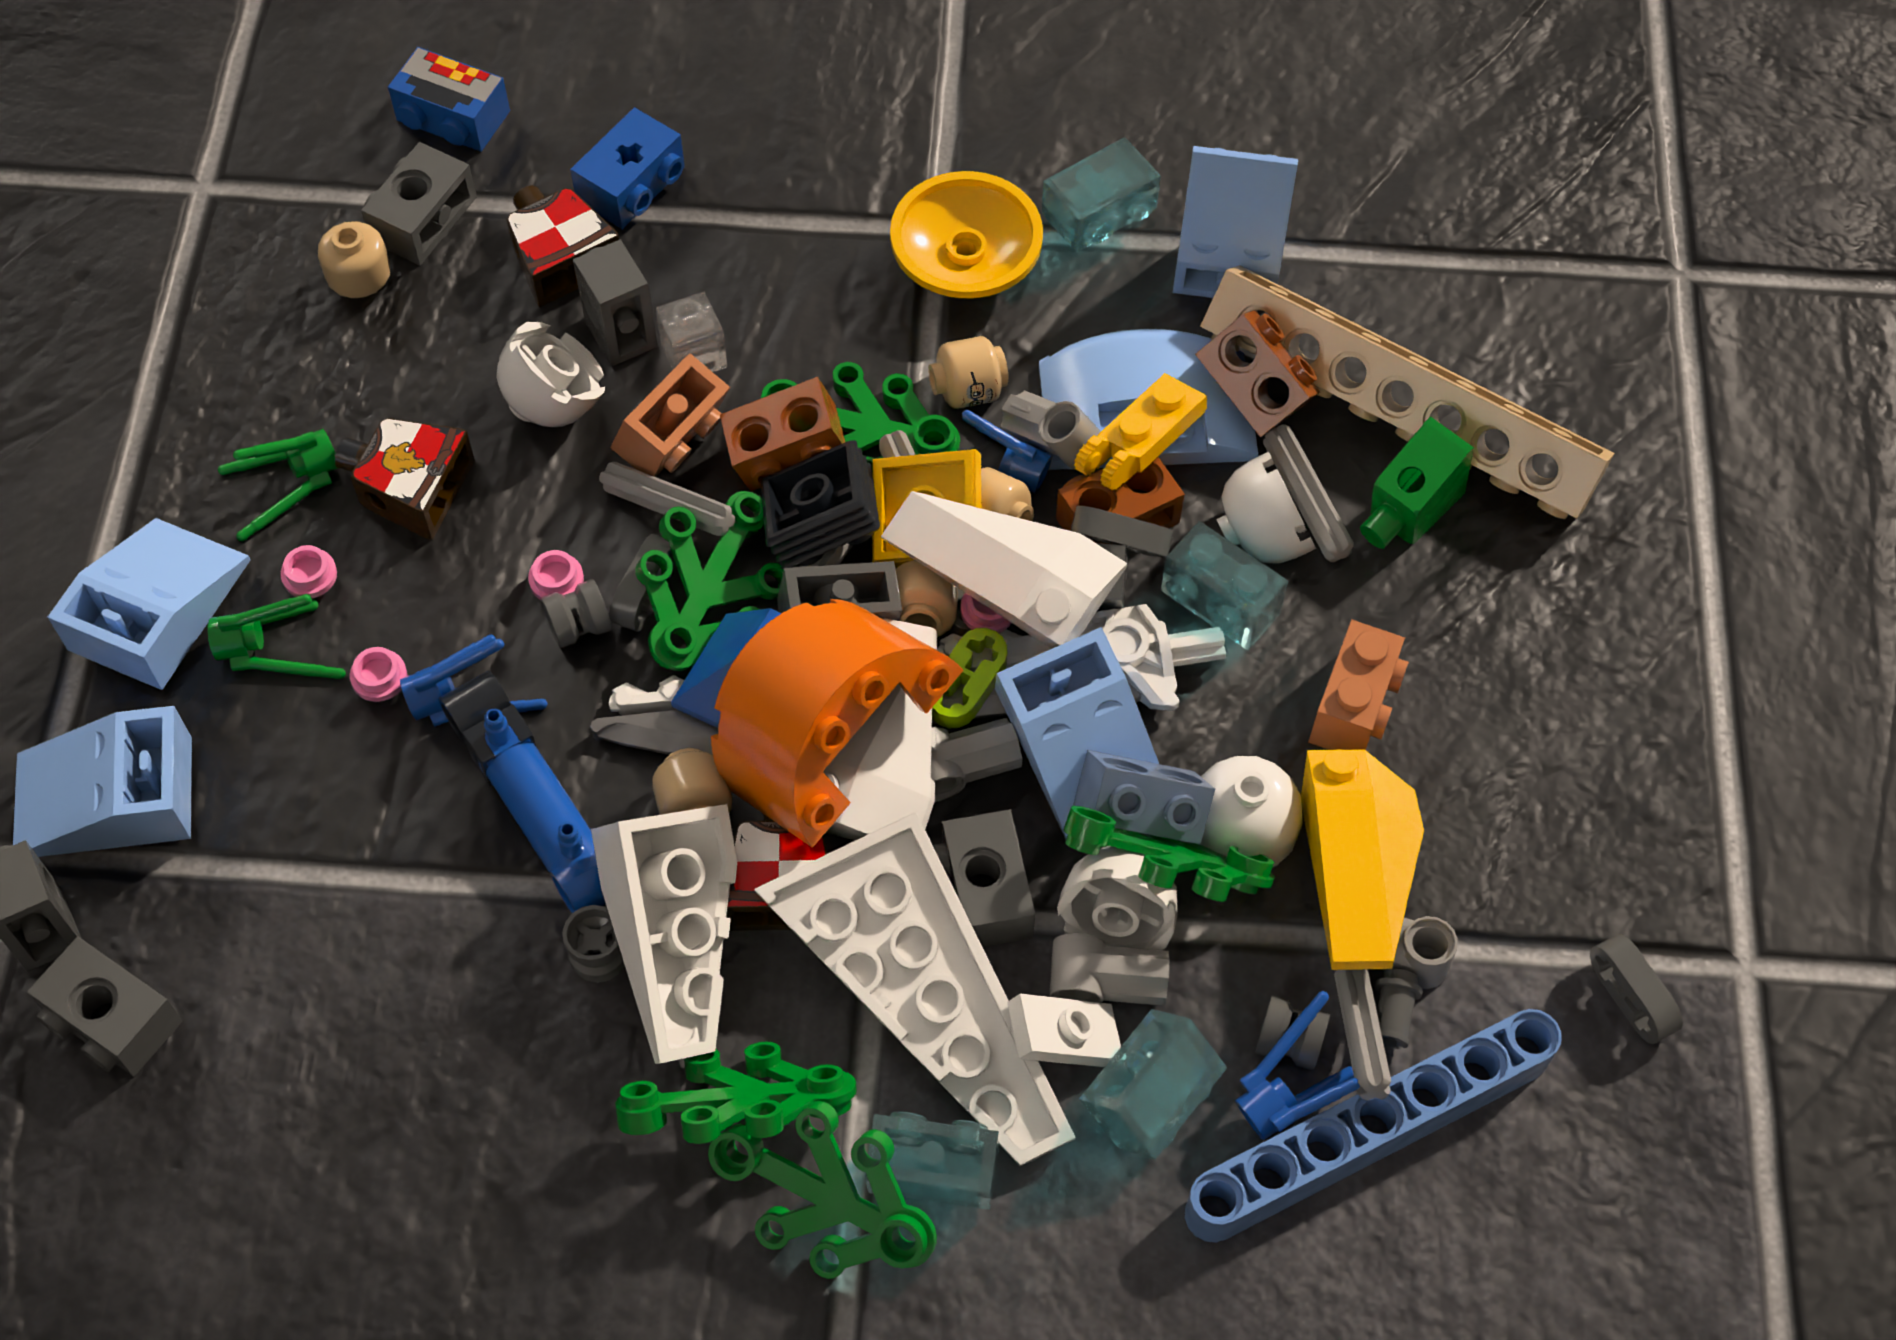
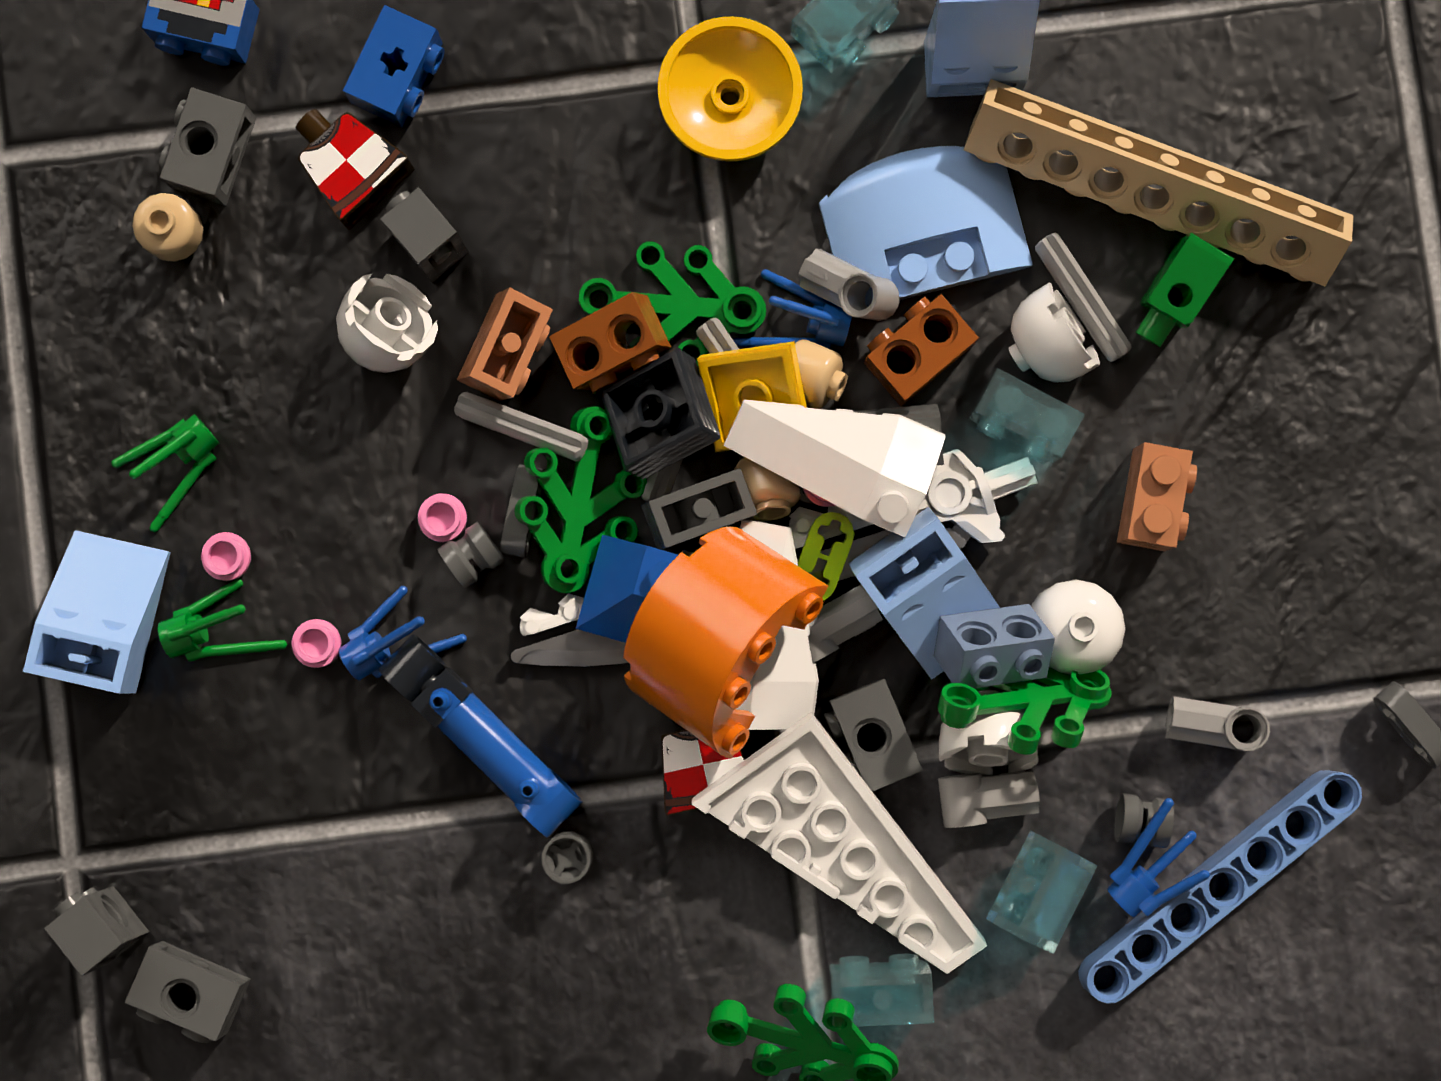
camera: 10 degrees left, 25 degrees up
(106, 785) = (120, 801): light blue slope -> none
(408, 471) = (283, 441): torso -> none
(668, 908) = (623, 825): white wedge -> none
(689, 782) = (611, 706): tan head -> none
(692, 328) = (500, 249): clear brick -> none
(736, 1096) = (721, 972): green plant -> none
(968, 372) = (760, 234): tan head -> none
(1063, 1030) = (963, 861): white plate -> none
(1122, 530) = (932, 397): dark grey beam -> none
(1142, 431) = (933, 281): yellow hinge -> none
(1248, 382) = (1017, 202): dark orange brick -> none
(1363, 853) = (1181, 655): yellow wedge -> none
(1363, 1033) = (1200, 811): light grey axle -> none
(1395, 1005) = (1222, 779): dark grey pin -> none

